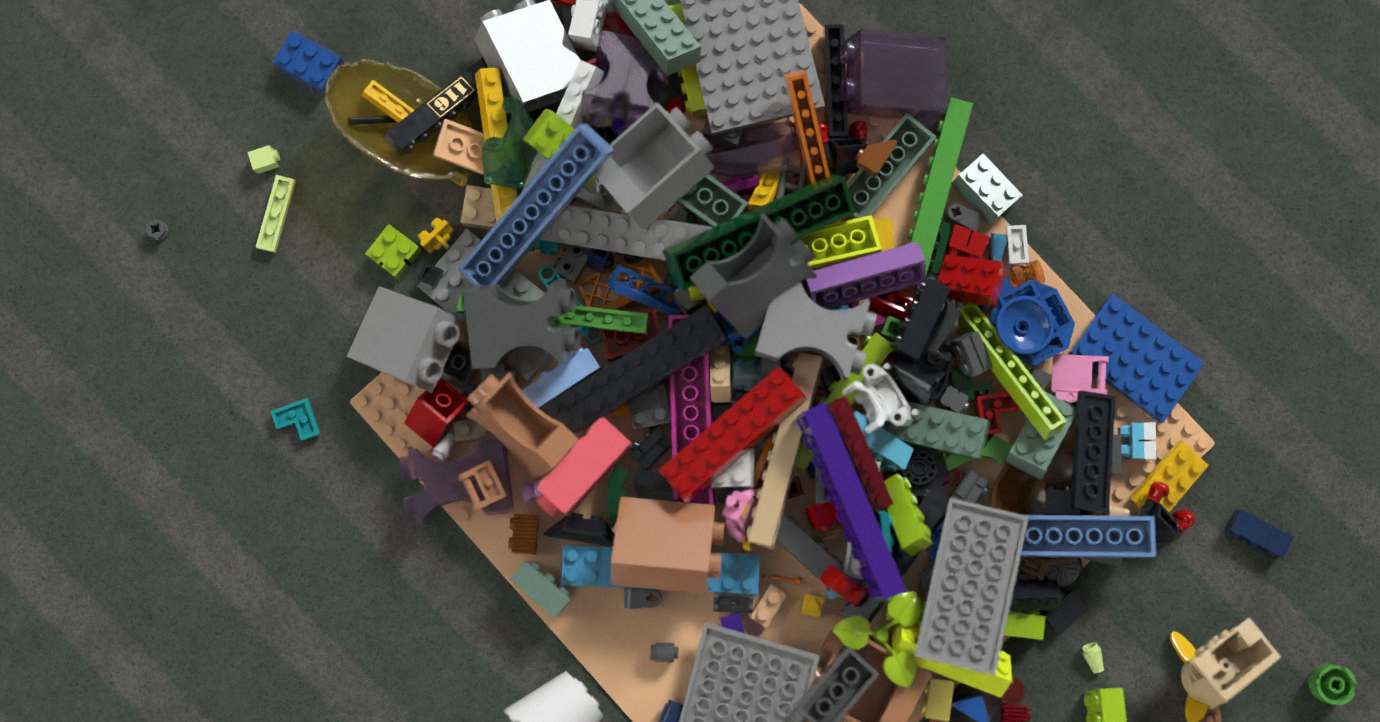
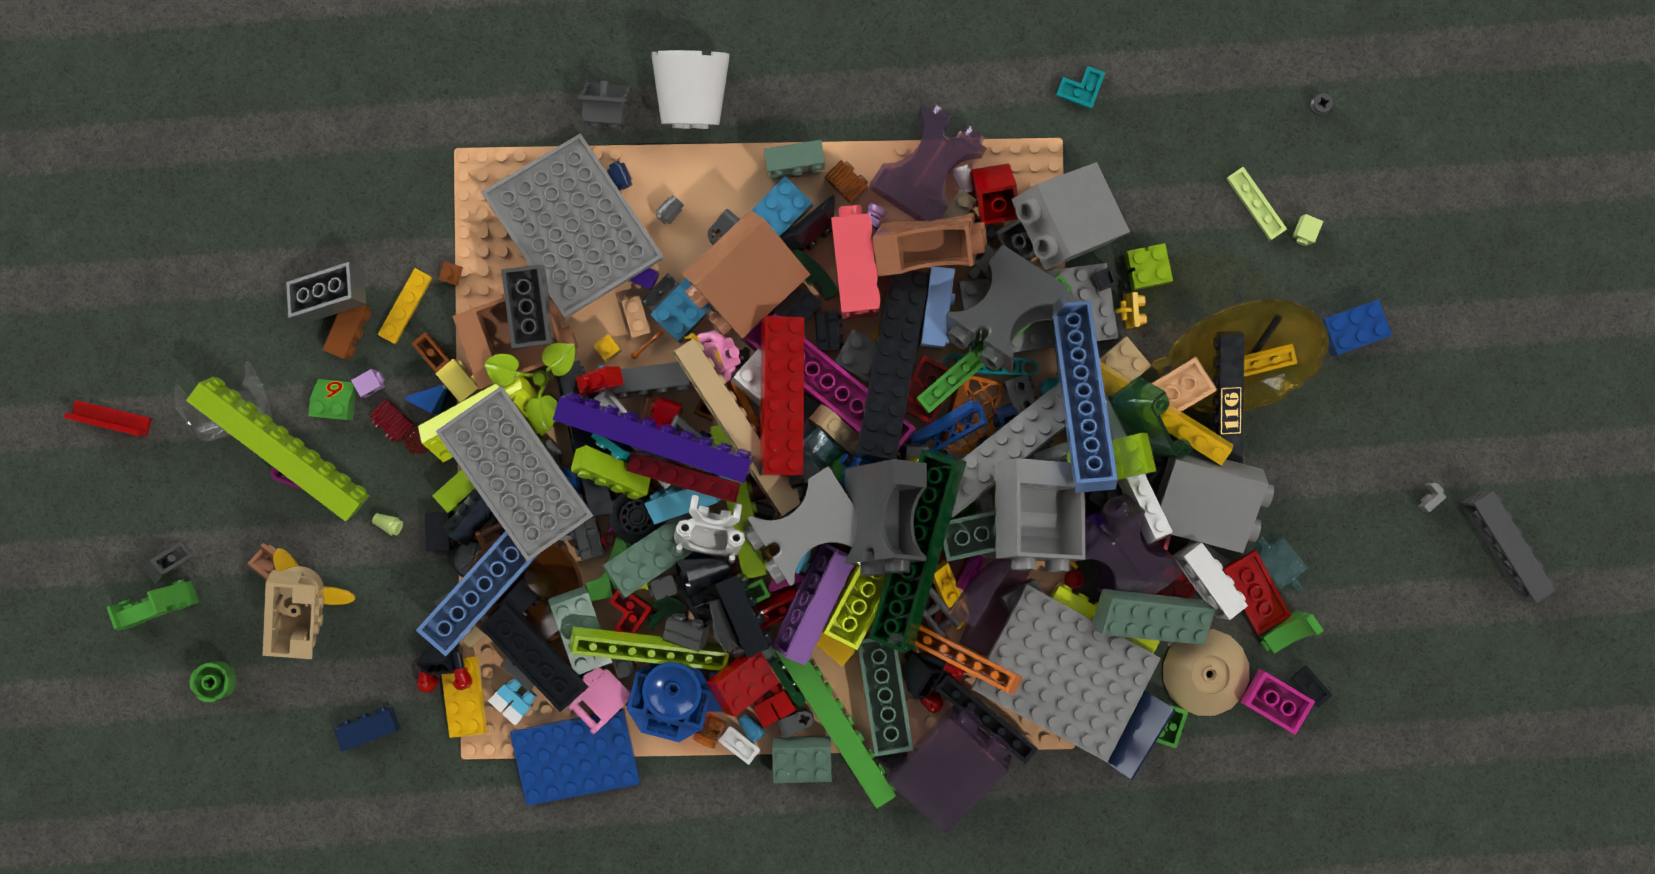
camera: 130 degrees right, 5 degrees up
(488, 482) = (907, 184): nougat plate -> none
(874, 156) = (900, 693): dark orange slope -> none

